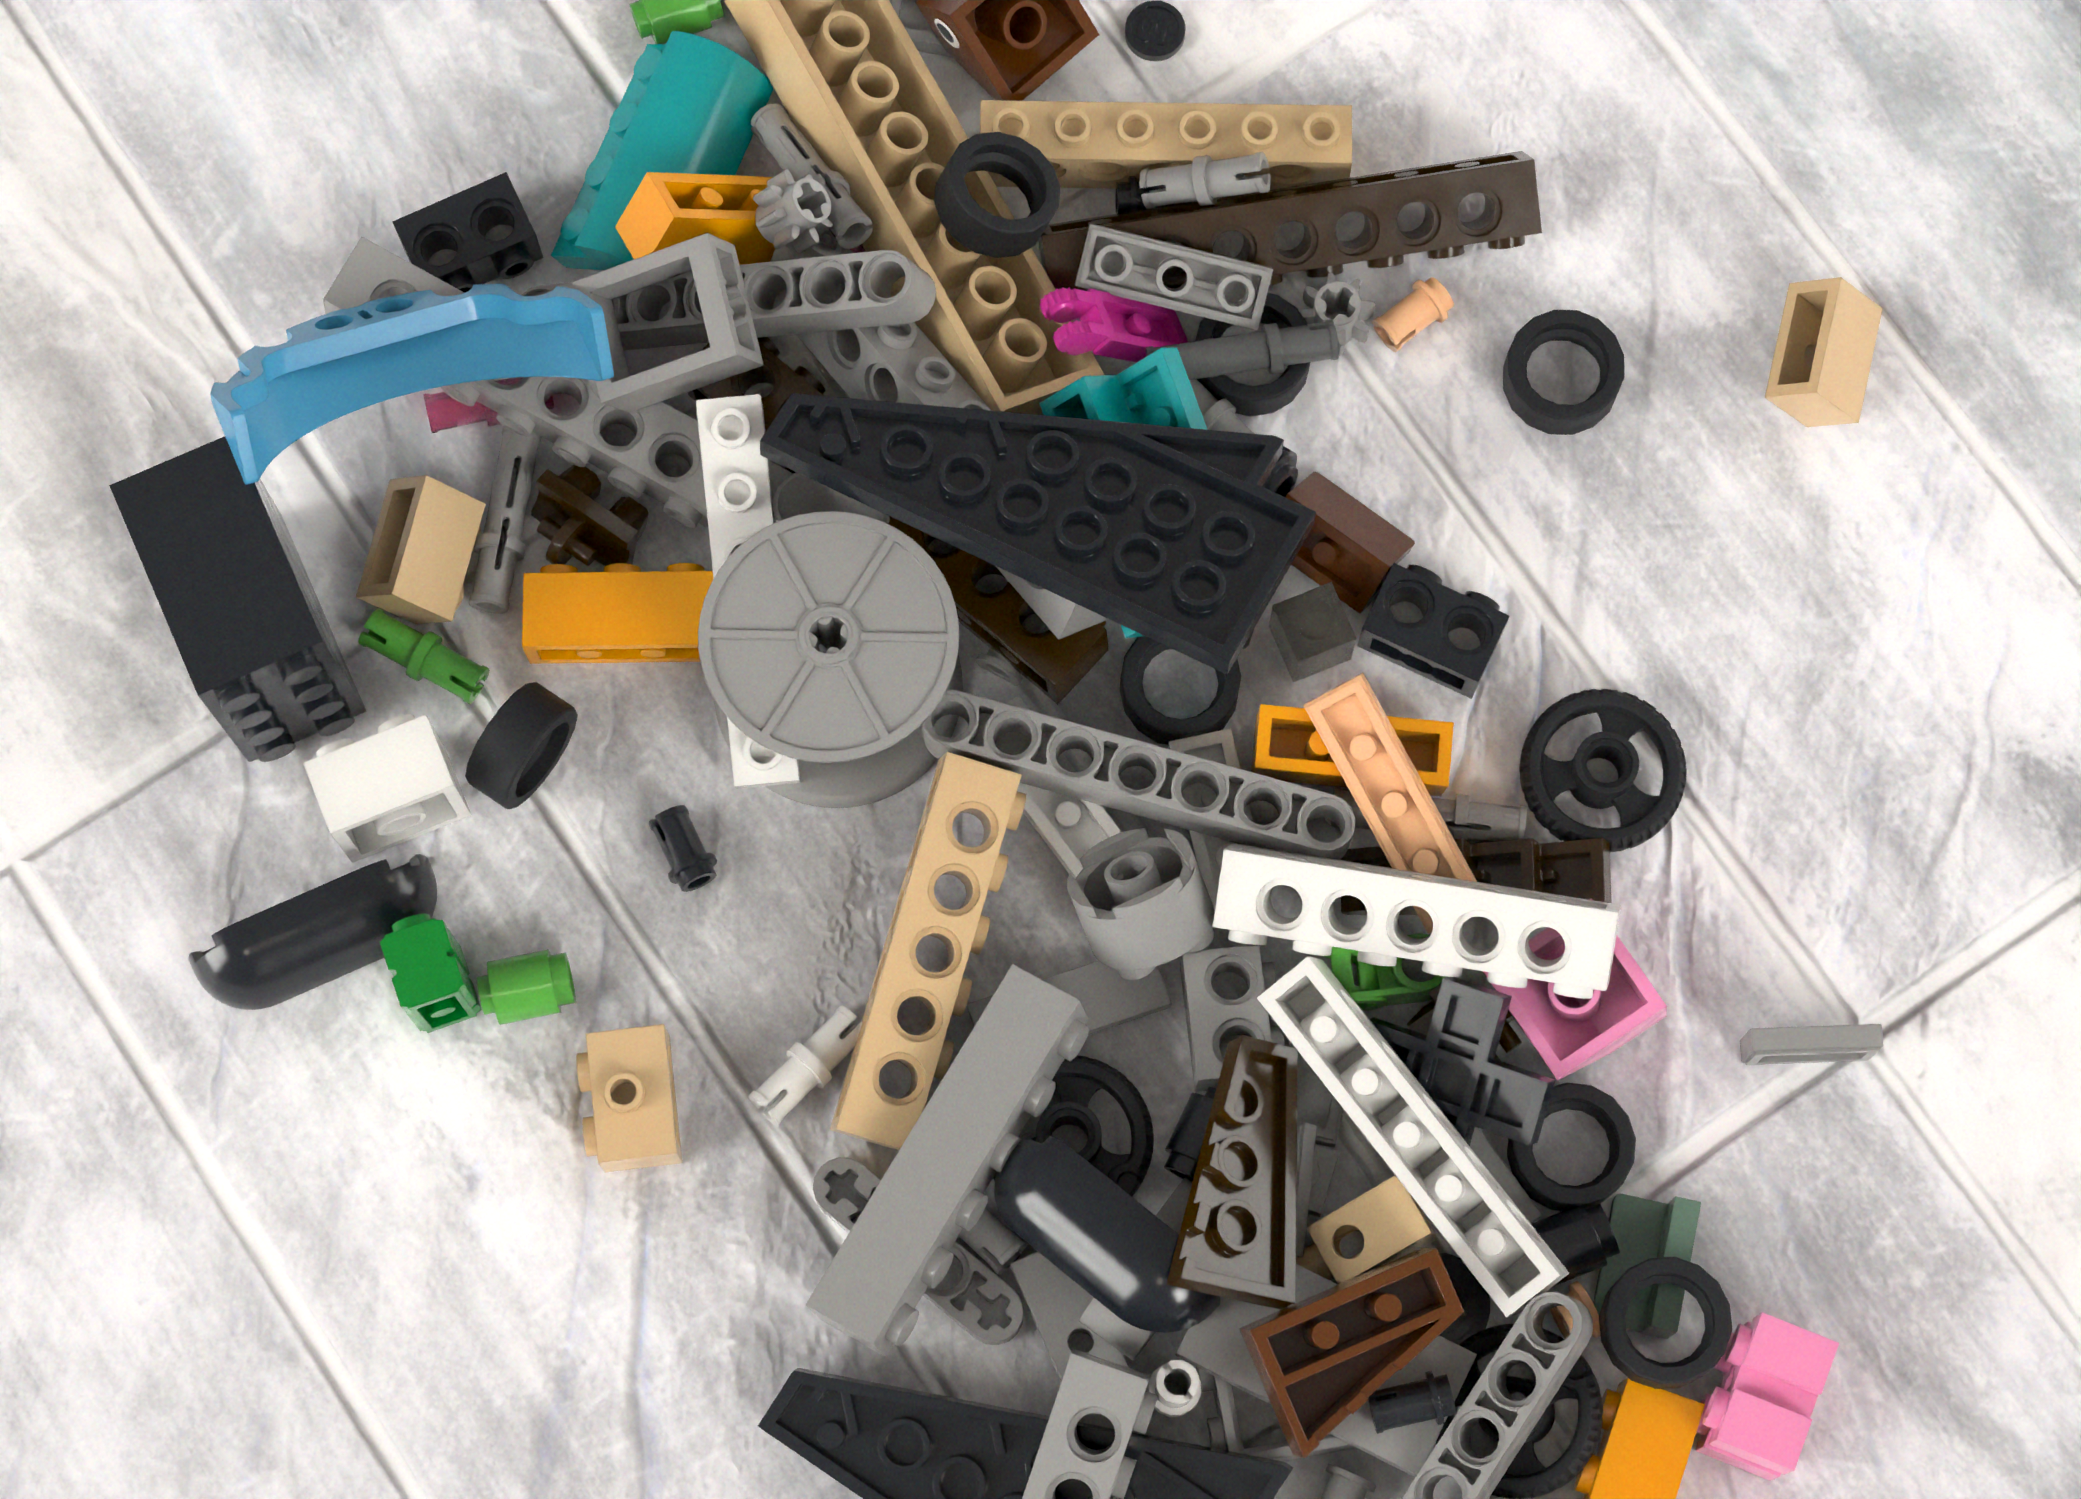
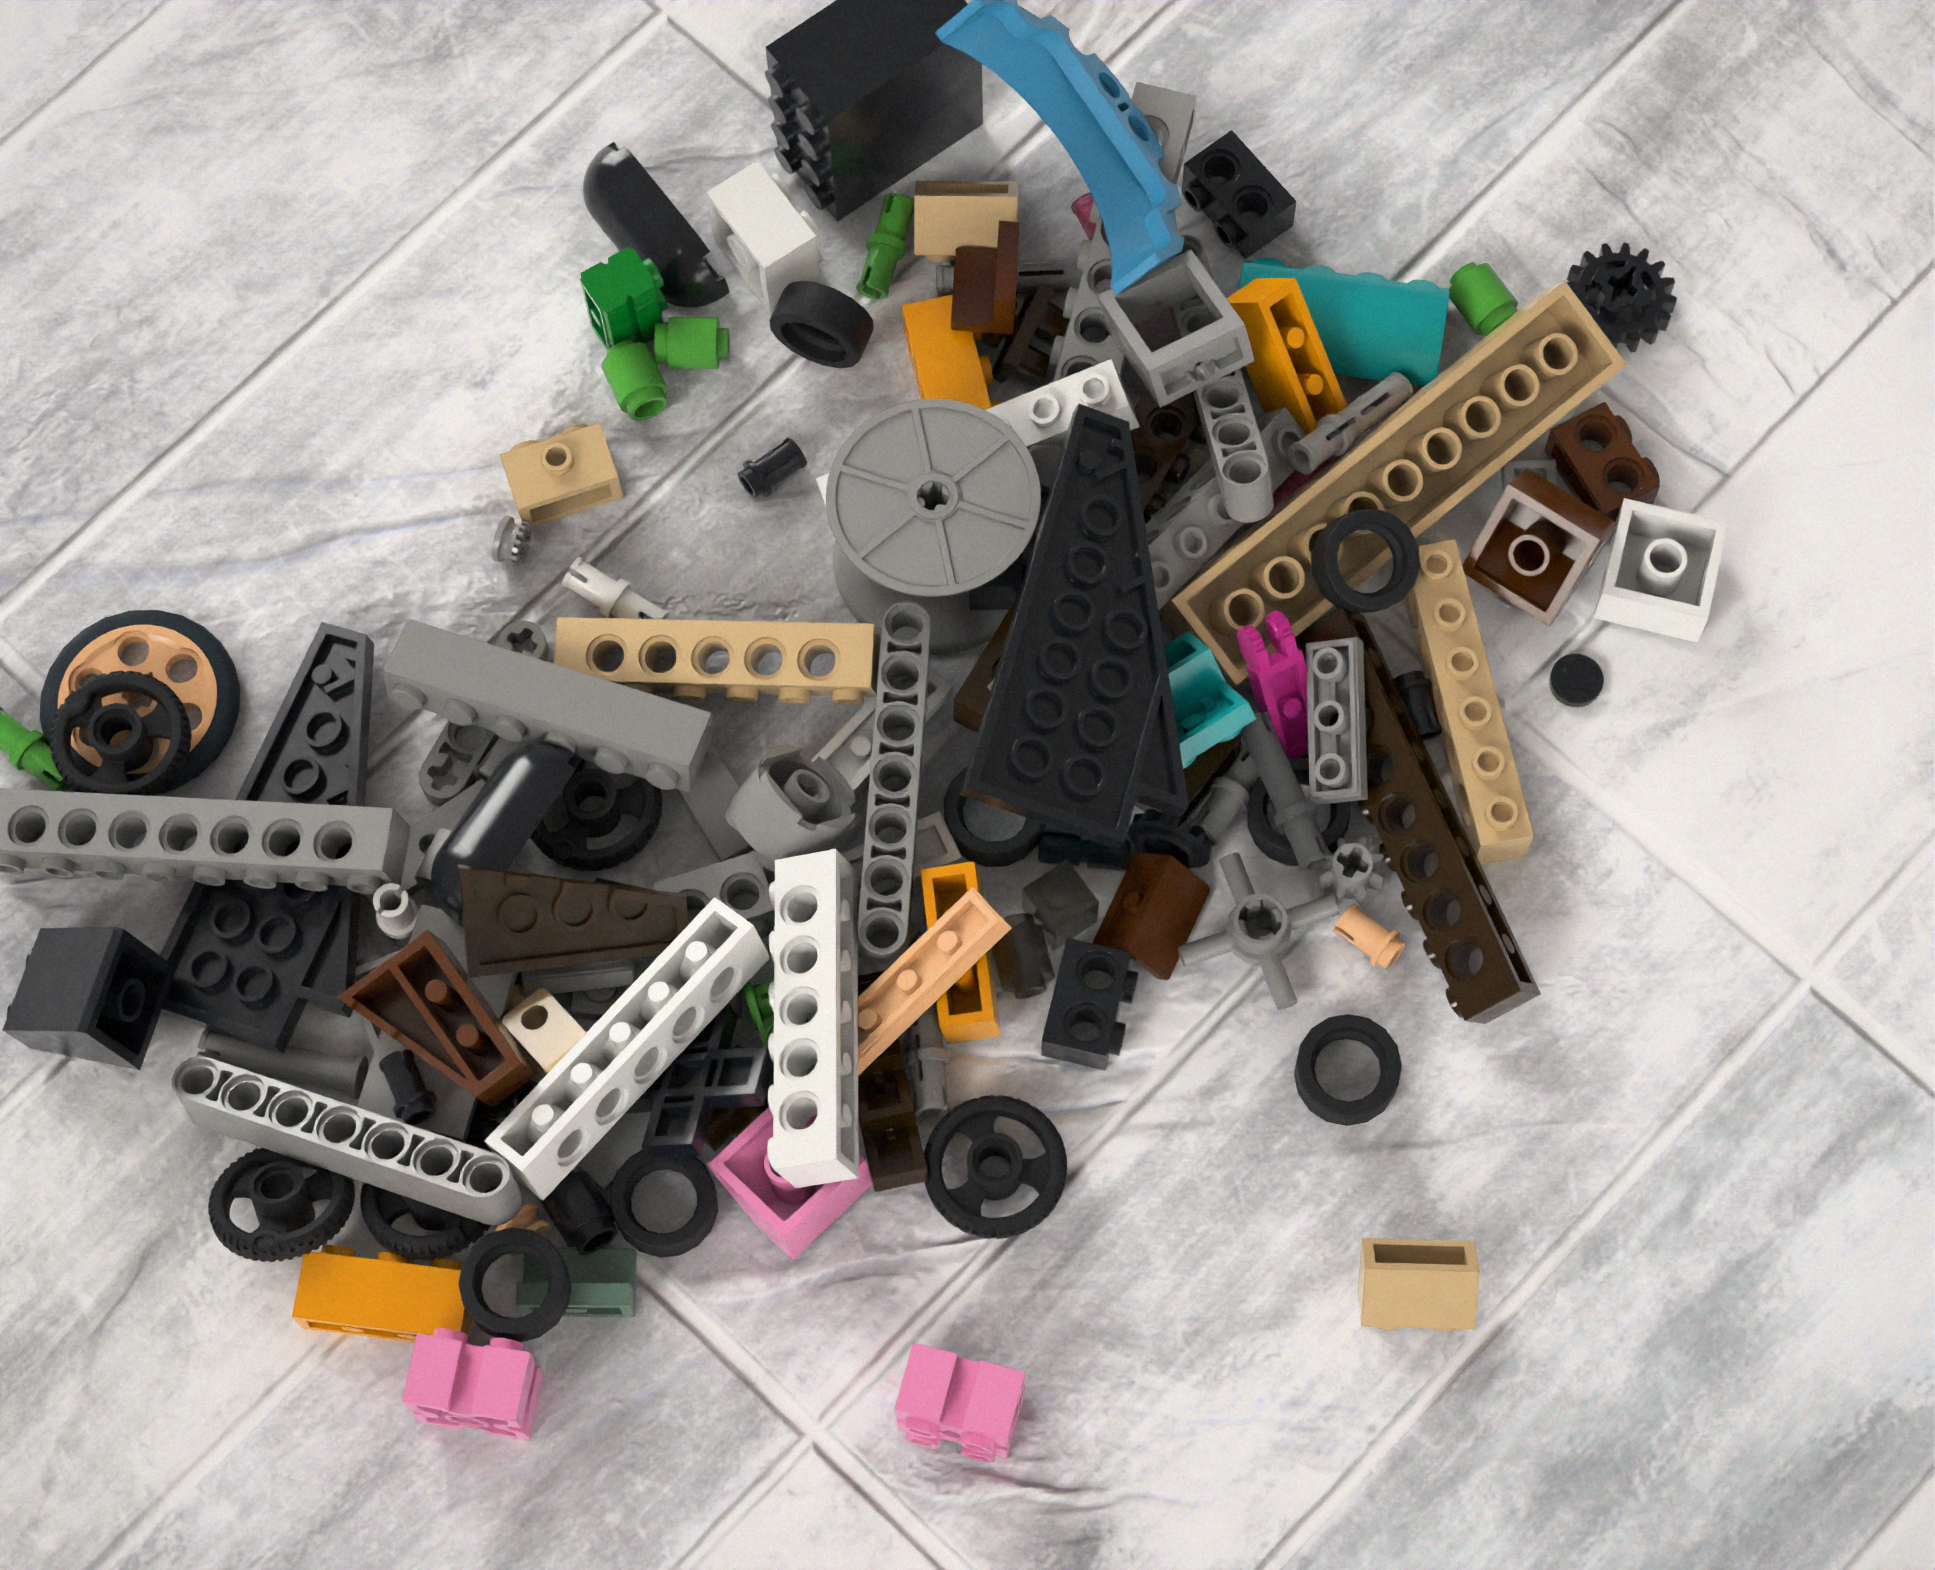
camera: 80 degrees right, 5 degrees down
(495, 909) = (691, 343): none -> bright green brick
(526, 535) = (986, 284): none -> reddish brown panel
(703, 1176) = (511, 541): none -> light grey bush
(793, 211) = (1286, 397): light grey gear -> none
(1205, 180) = (1430, 729): light grey pin -> none
(1386, 681) = (1023, 958): none -> clear smoke brick
(1391, 449) = (1269, 914): none -> light grey bar
(1811, 1044) = (790, 1383): light grey tile -> none
(1877, 857) = (959, 1403): none -> bright pink brick

